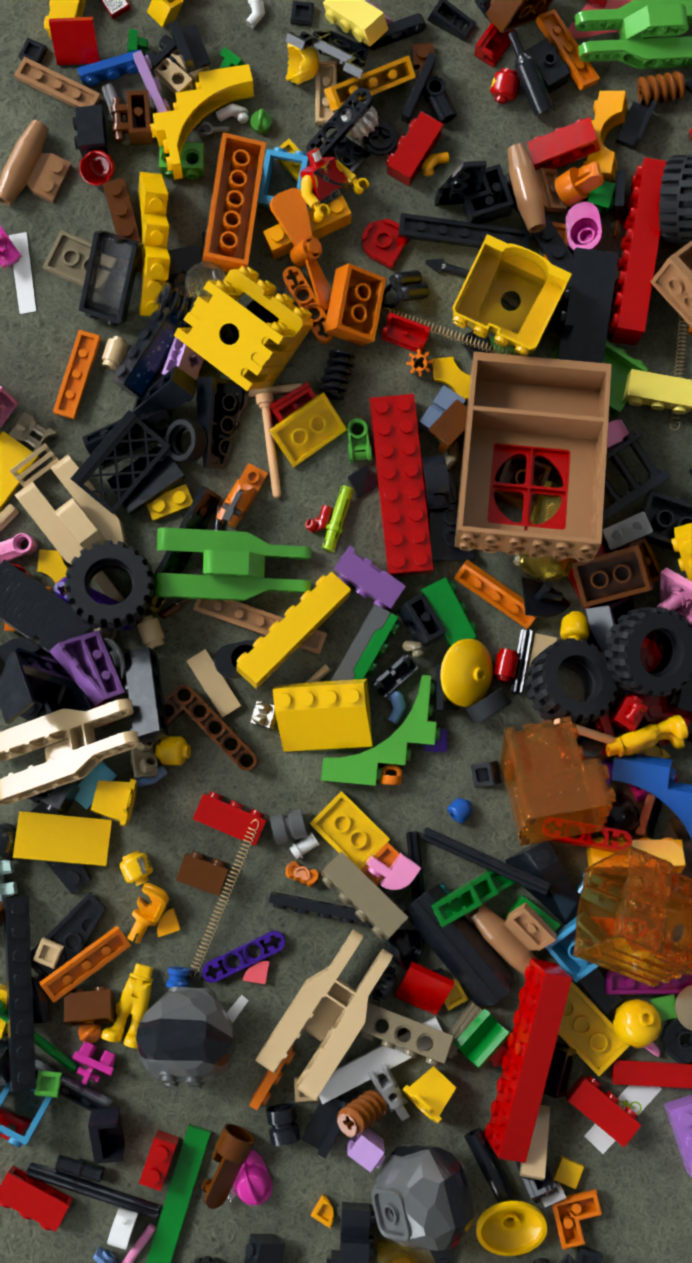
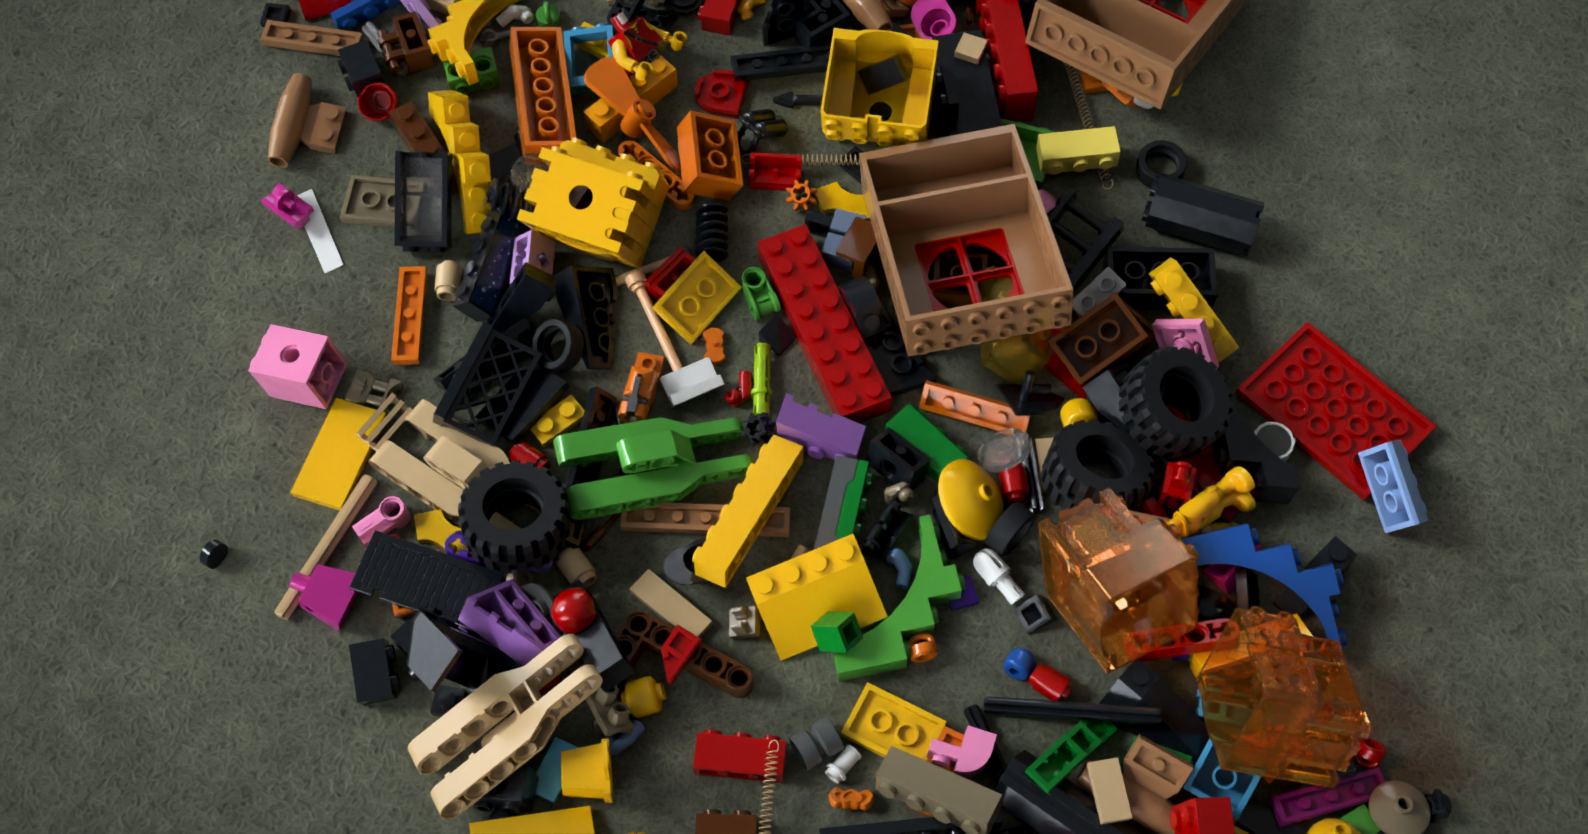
camera: 15 degrees left, 20 degrees down
(135, 674) = (573, 610): none -> red hair
(138, 531) = (525, 452): none -> red brick
(206, 727) = (678, 651): none -> red tile
(282, 503) = (691, 381): none -> white panel
(309, 481) = (714, 345): none -> orange piece
(322, 561) = (754, 434): none -> black gear
(328, 751) = (837, 631): none -> green brick
(426, 392) = (818, 223): none -> black plate
(467, 735) = (996, 574): none -> white arm
(477, 833) = (1050, 683): none -> red brick
(488, 936) = (1109, 791): none -> tan tile
(507, 638) = (1005, 450): none -> clear tile
(518, 282) = (883, 74): none -> black tile
(603, 270) = (971, 48): none -> tan tile

